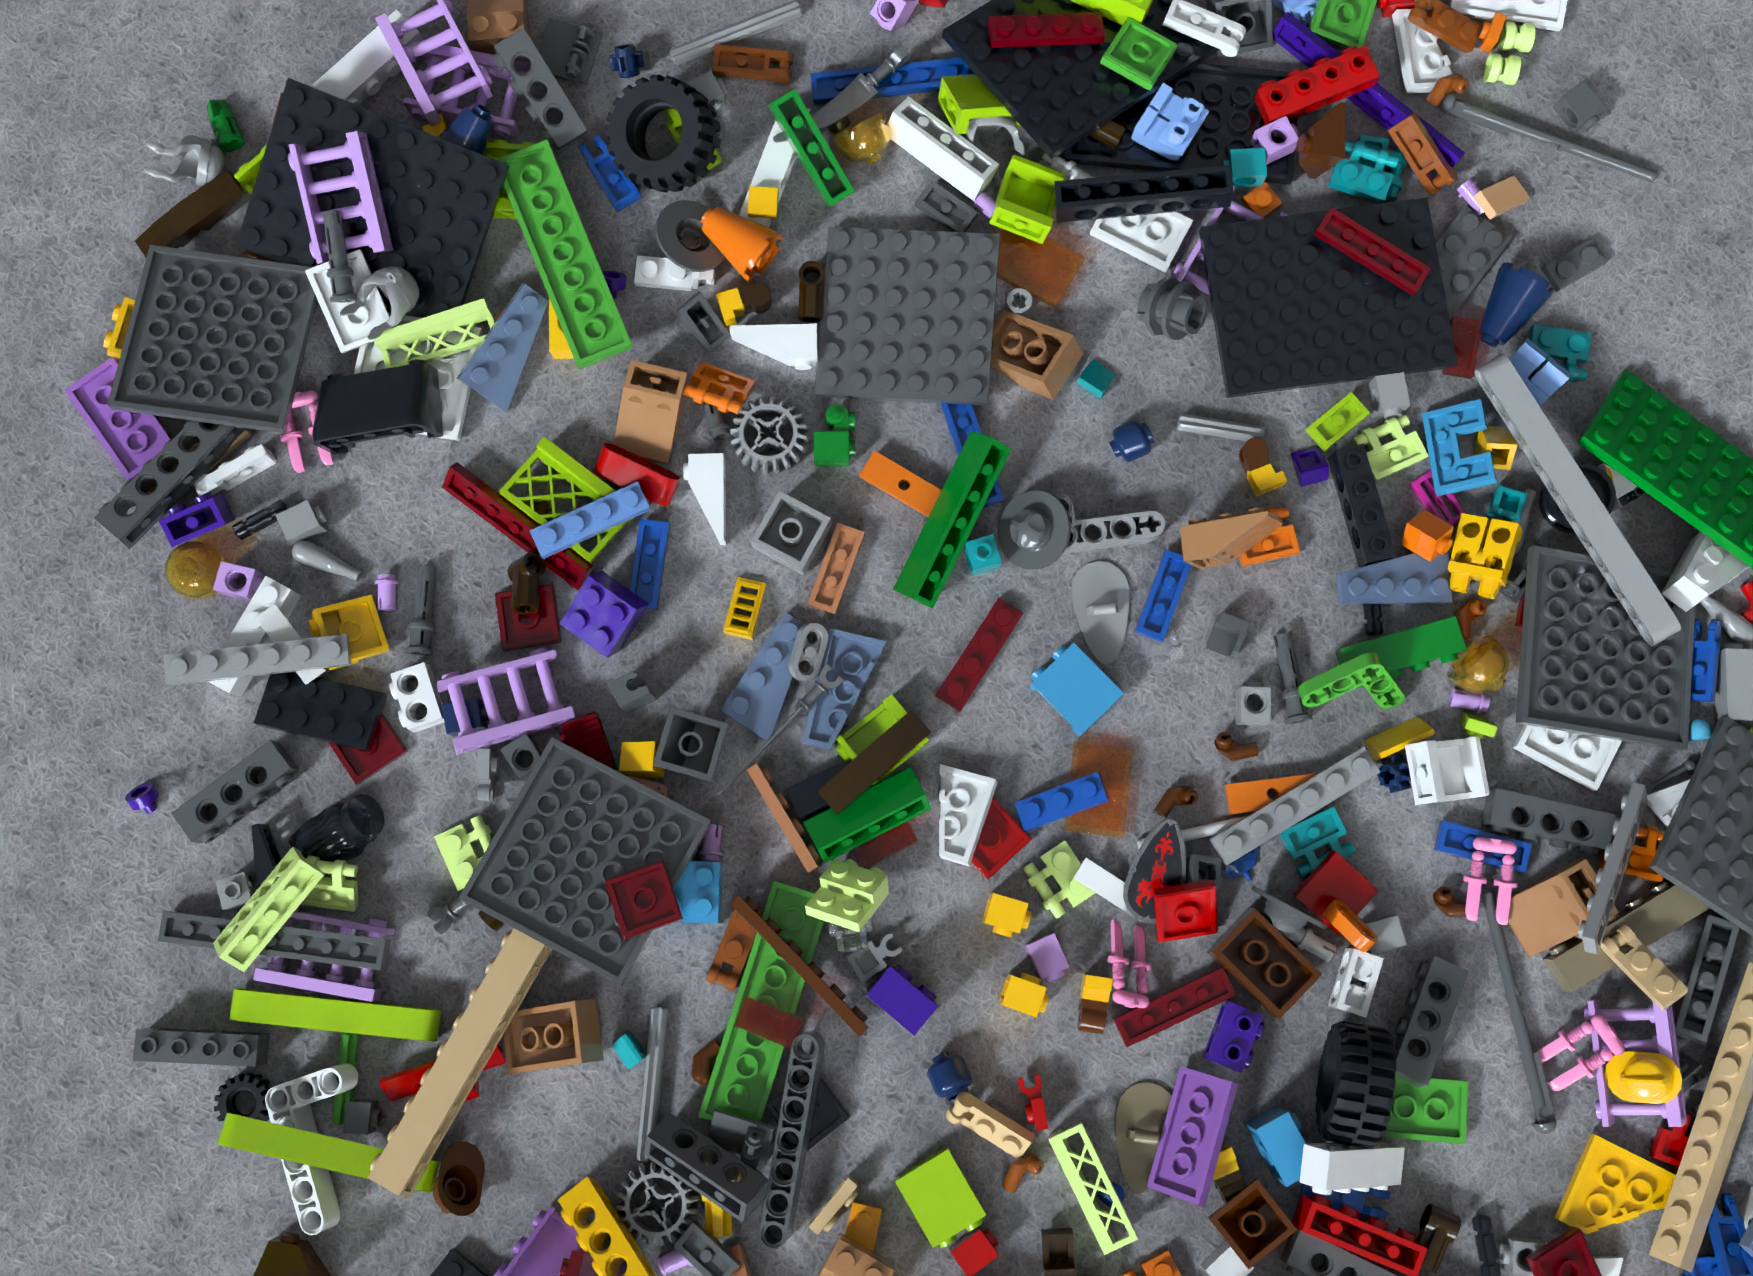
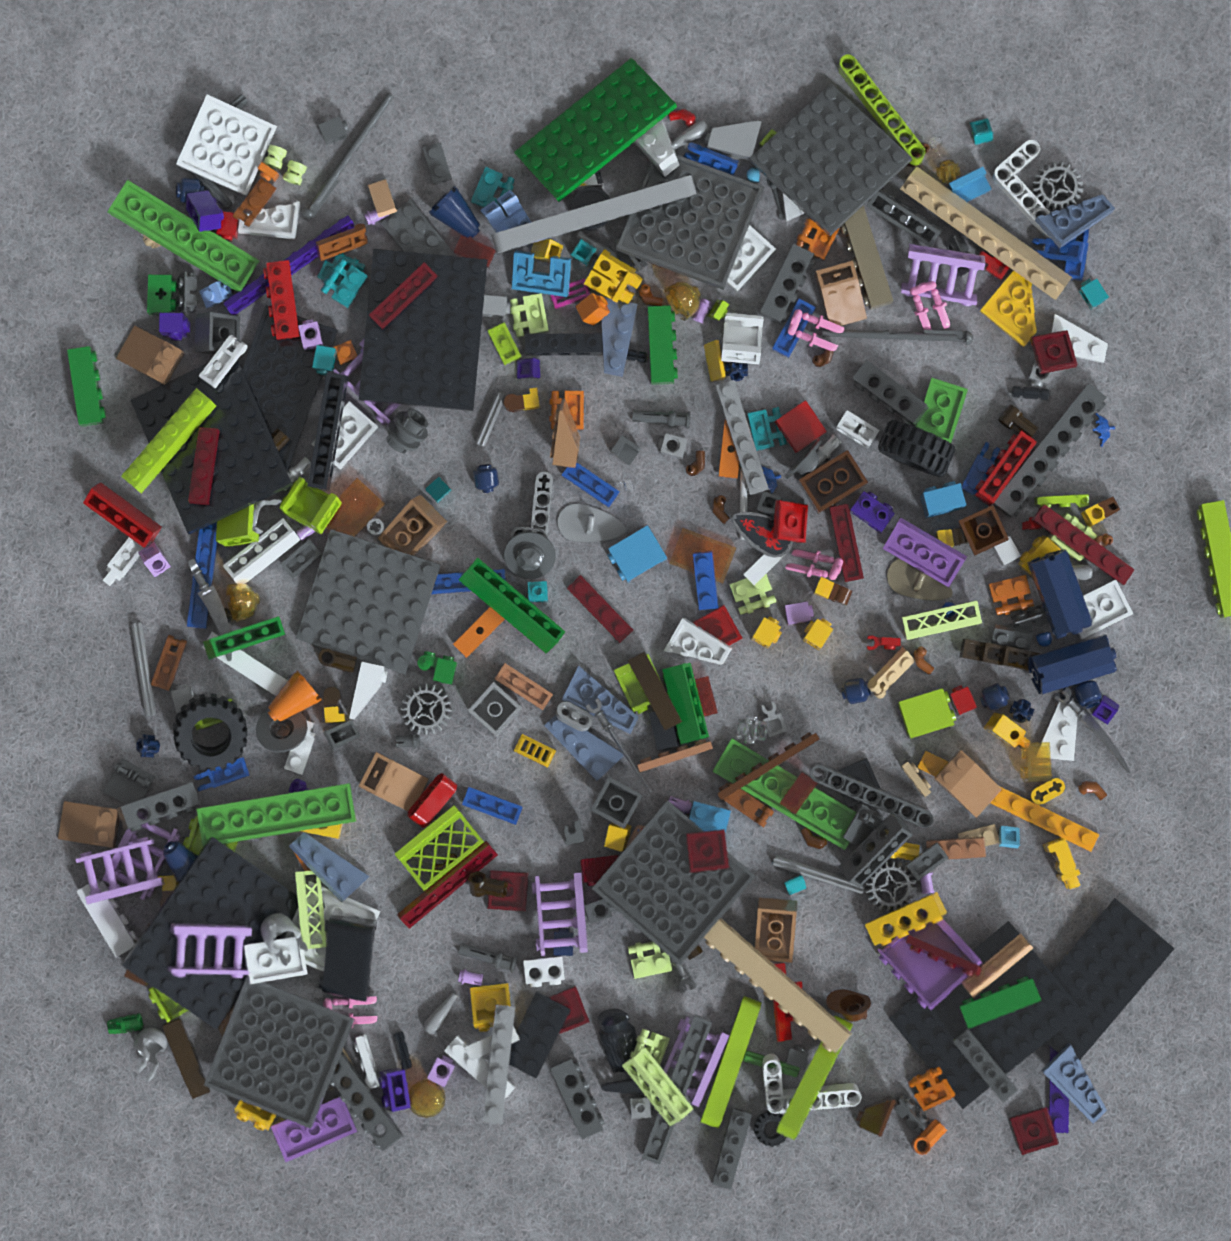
camera: 80 degrees left, 5 degrees up
(143, 797) = (566, 1158): dark purple tile -> none
(302, 522) = (411, 1022): light grey brick -> none
(339, 271) = (258, 960): dark grey pin -> none
(487, 766) = (598, 934): light grey plate -> none
(590, 520) = (457, 835): medium blue plate -> none
(604, 613) = (519, 840): dark purple brick -> none
(708, 482) = (449, 756): white slope -> none
(714, 381) = (384, 731): orange plate -> none
(763, 202) = (271, 677): yellow tile -> none
(848, 894) = (732, 726): yellowish green plate -> none
(903, 999) = (803, 708): dark purple brick -> none
(1139, 53) = (234, 410): bright green plate -> none
(1169, 123) = (283, 391): light blue hips -> none
(1323, 142) = (319, 305): reddish brown slope -> none
(1350, 925) = (822, 424): orange beam -> none
(1351, 1167) = (962, 466): white brick -> none
(1354, 674) = (670, 375): bright green beam -> none
(1388, 933) = (832, 406): light grey brick -> none
(1447, 85) = (298, 215): dark orange arm -> none
(1610, 878) = (824, 255): light grey plate -> none
(1643, 1077) = (952, 275): yellow piece -> none
(1644, 968) = (888, 256): tan plate -> none

